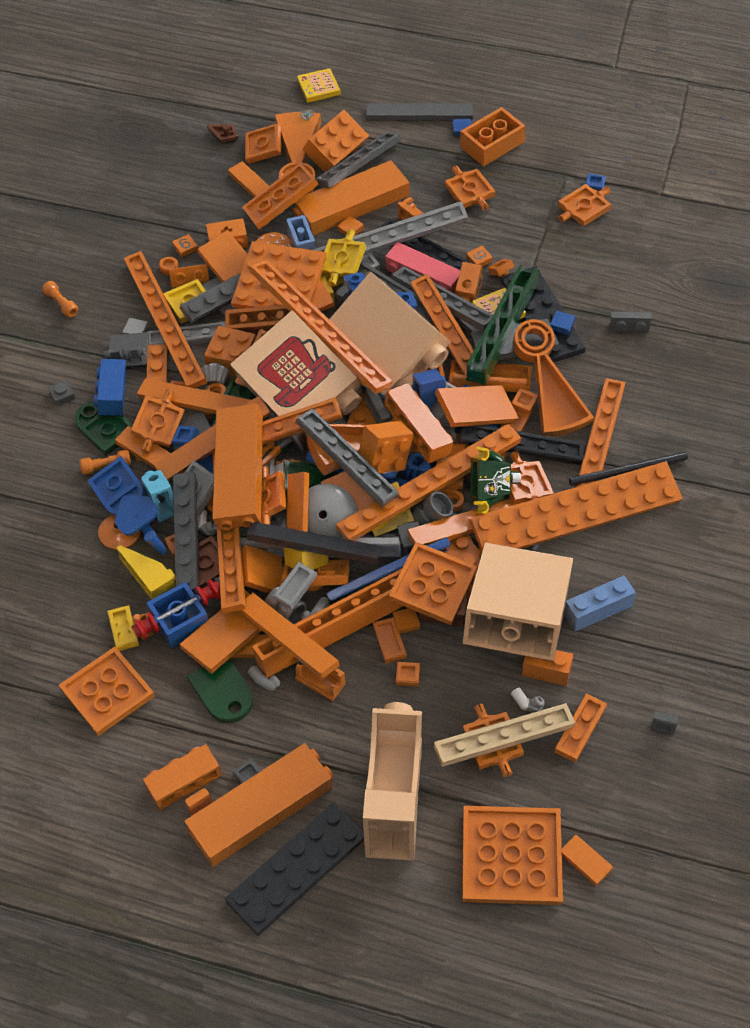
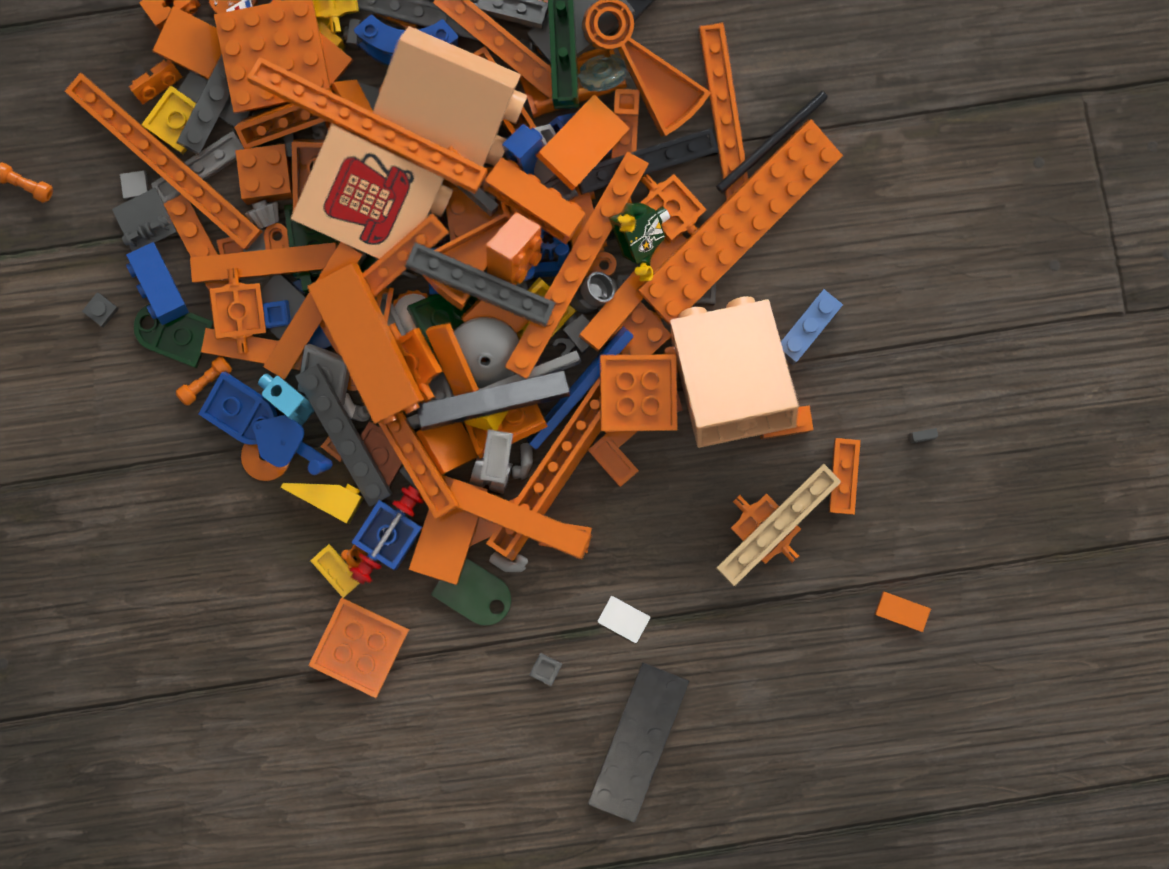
camera: 30 degrees left, 30 degrees up
(168, 263) = (122, 75): orange tile -> none
(182, 777) = (484, 704): orange brick -> none
(185, 245) = (125, 37): orange tile -> none
(198, 801) = (514, 722): orange tile -> none
(259, 804) = (574, 698): orange brick -> none
(338, 763) = (623, 619): none -> white sticker
(393, 783) = (702, 634): light nougat brick -> none
(407, 674) = (649, 490): orange tile -> none
(512, 855) = (833, 639): orange plate -> none
(515, 372) = (602, 73): none -> clear light blue tile
(527, 704) = (782, 471): arm -> none

